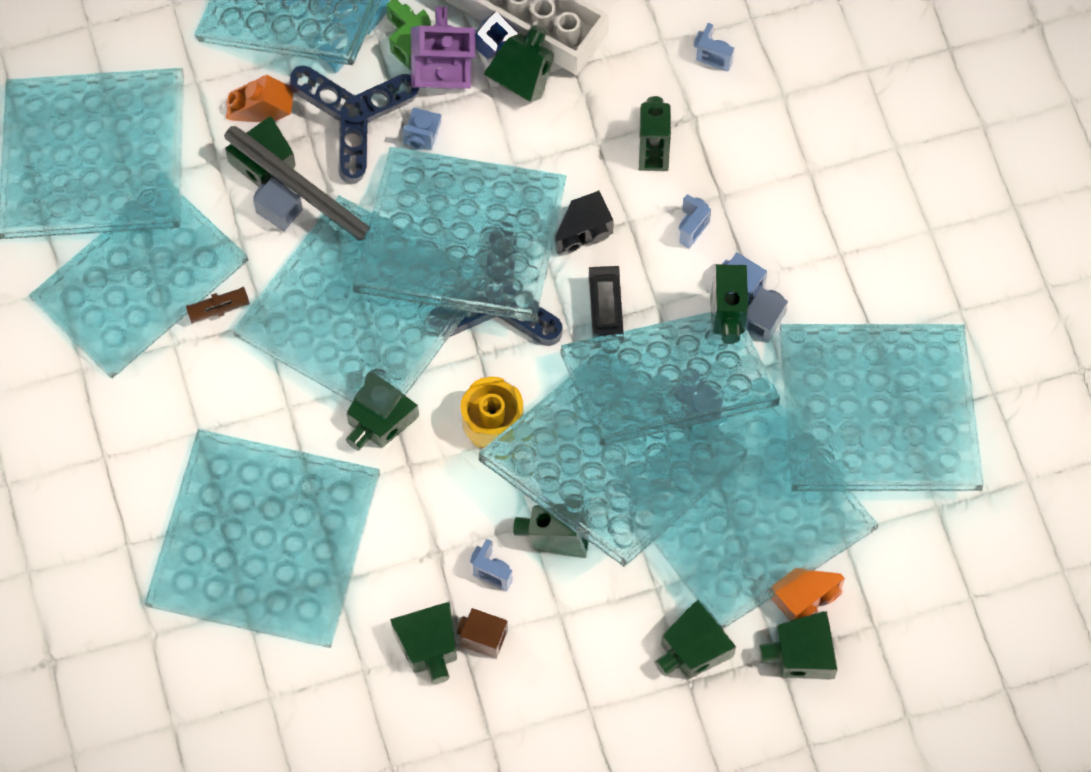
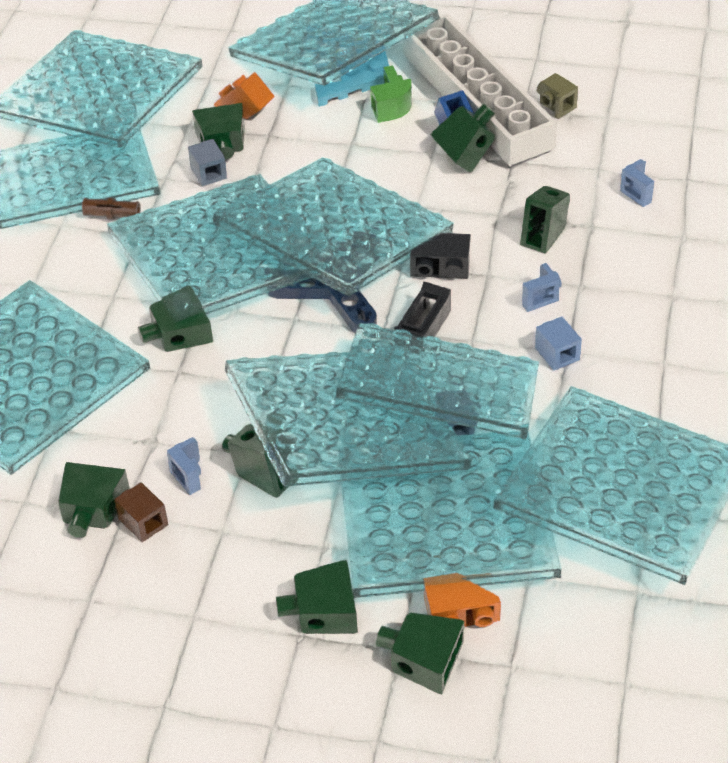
camera: 30 degrees right, 20 degrees down
(296, 182) = (226, 144): dark grey axle -> none
(359, 123) = (309, 135): dark blue piece -> none
(421, 129) = (358, 157): medium blue bracket -> none
(441, 54) = (403, 108): medium lavender plate -> none
(485, 396) = (268, 338): yellow brick -> none
(729, 310) = (523, 350): dark green torso -> none
(765, 313) = (559, 373): sand blue brick -> none

